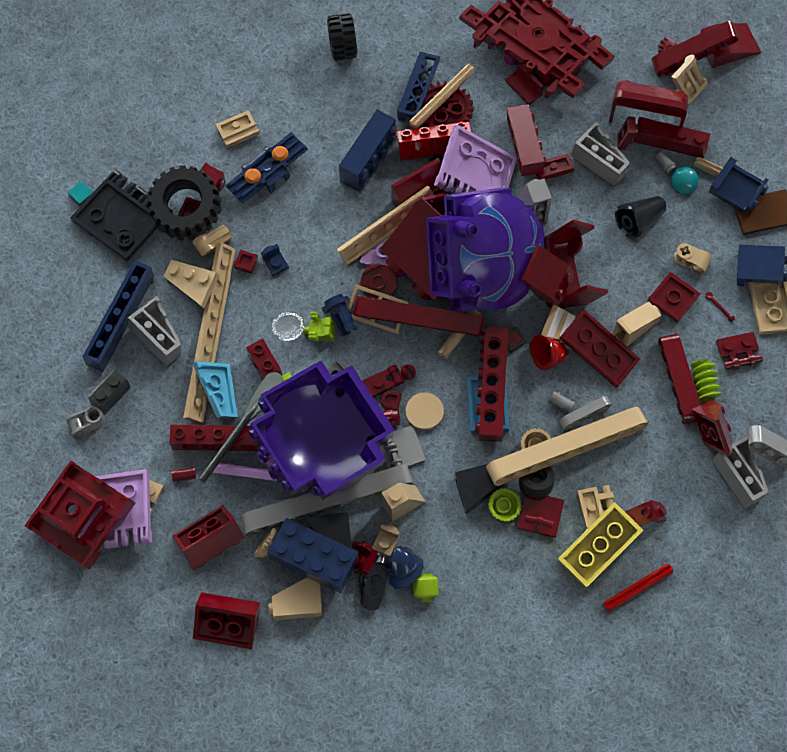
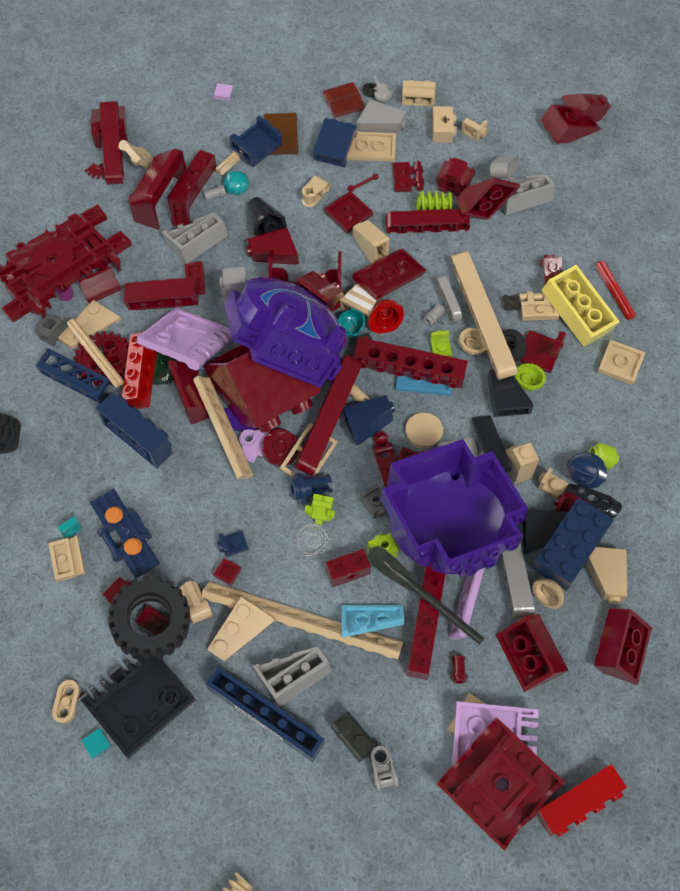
camera: 80 degrees left, 5 degrees down
(77, 591) = (581, 800): none -> red brick
(111, 160) = (65, 702): none -> tan plate
(266, 123) = (69, 527): none -> teal tile
(415, 472) = (490, 440): none -> black tile
(423, 354) = (368, 417): none -> dark blue slope
(465, 54) = (50, 329): none -> dark grey brick
(484, 88) = (92, 320): none -> tan wing
(526, 413) = (440, 343): none -> lime bracket
(535, 318) = (352, 318): none -> teal hair
(544, 599) = (621, 362): none -> tan plate
(596, 473) = (511, 306): none -> clear smoke plate
(609, 232) = (279, 241): none -> dark red slope
(742, 396) = (454, 176): none -> dark red brick

